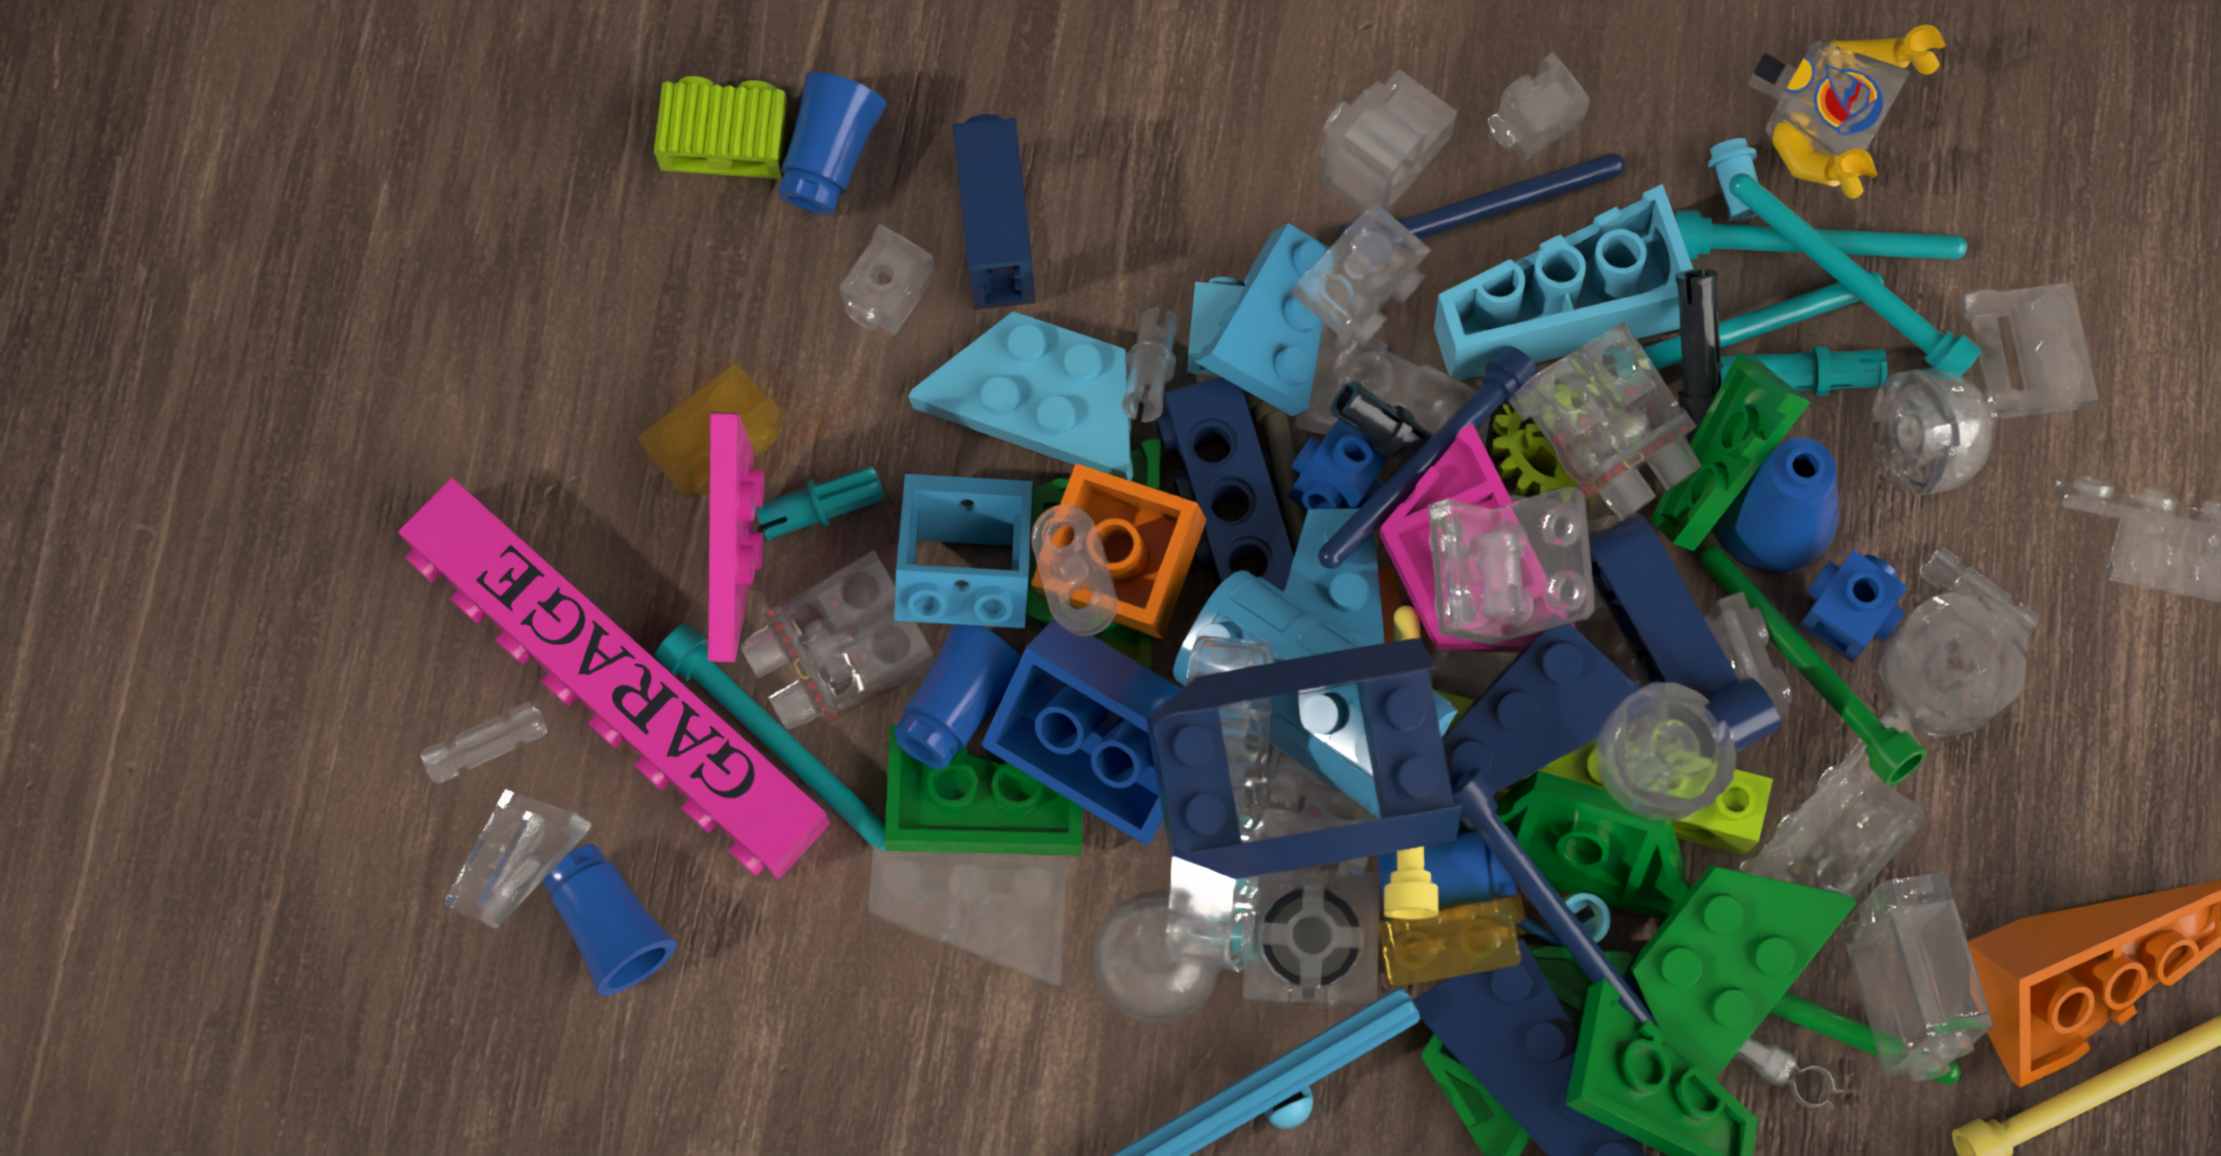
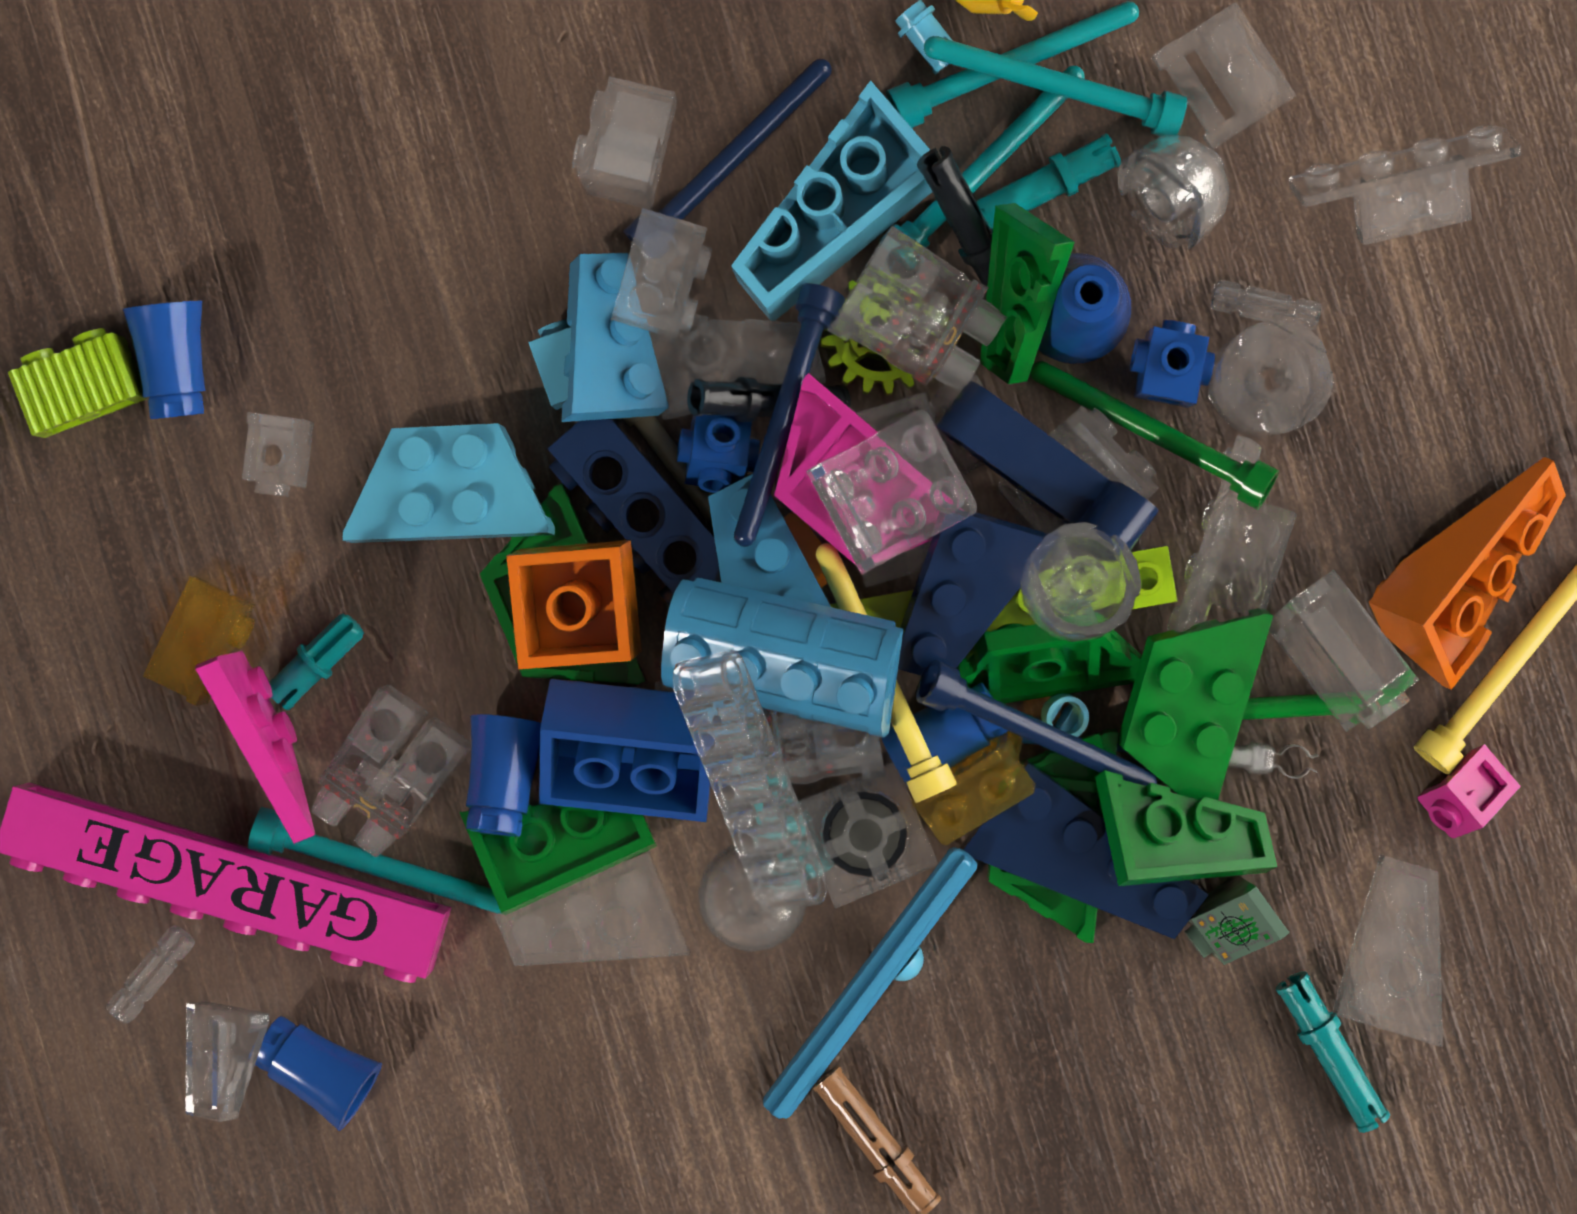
camera: 30 degrees left, 15 degrees up
(935, 513) = (411, 627): dark azure window -> none
(994, 212) = (334, 358): dark blue window -> none
(1073, 568) = (551, 642): clear plate -> none
(1150, 364) = (524, 426): clear pin -> none
(1401, 745) = (869, 682): dark blue wedge -> none
(1501, 574) = (889, 504): clear pin -> none
(1539, 109) = (739, 52): clear brick -> none

